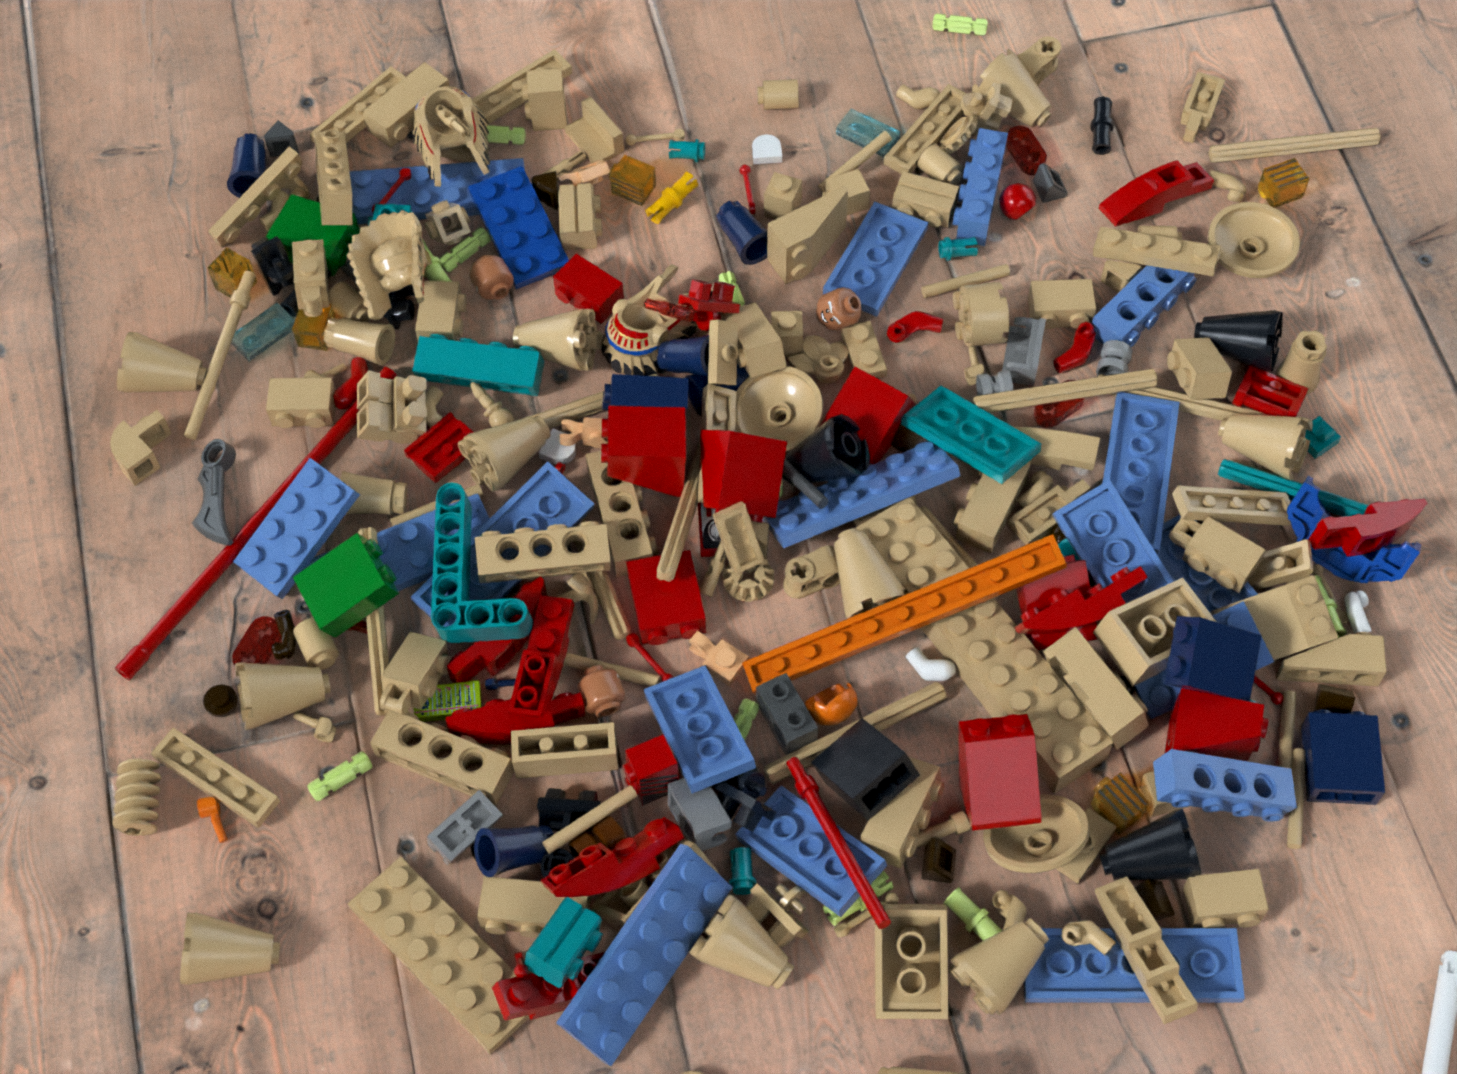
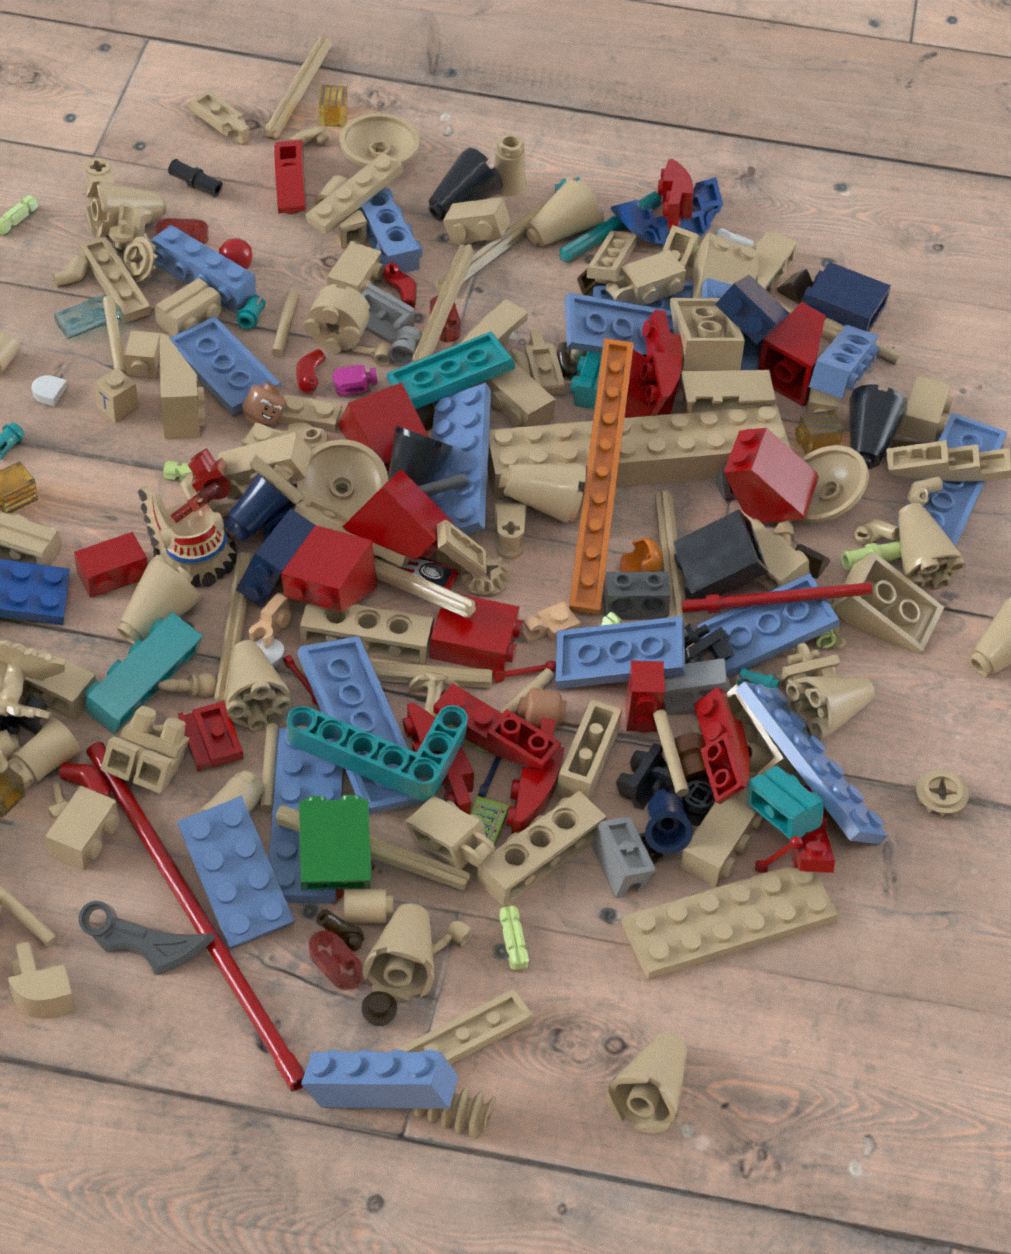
camera: 70 degrees left, 10 degrees down
(120, 726) = (380, 1079): none -> medium blue brick
(211, 808) = (492, 1052): orange hand -> none
(491, 277) = (46, 628): nougat head -> none
(528, 565) = (393, 682): tan brick -> none
(671, 197) = (52, 471): yellow pin -> none
(714, 570) = (461, 581): tan pin -> none
(744, 232) = (131, 434): dark blue plant -> none
(745, 171) = (103, 424): red hinge -> none
(924, 365) = (353, 380): none -> dark pink arm
(930, 669) = (640, 496): white arm -> none
(940, 165) = (161, 285): tan brick -> none
(1049, 184) = (223, 231): dark grey slope -> none
(1114, 357) = (429, 267): light grey wheel -> none
(1142, 458) = (527, 286): medium blue plate -> none
(1269, 394) = (525, 197): red plate -> none

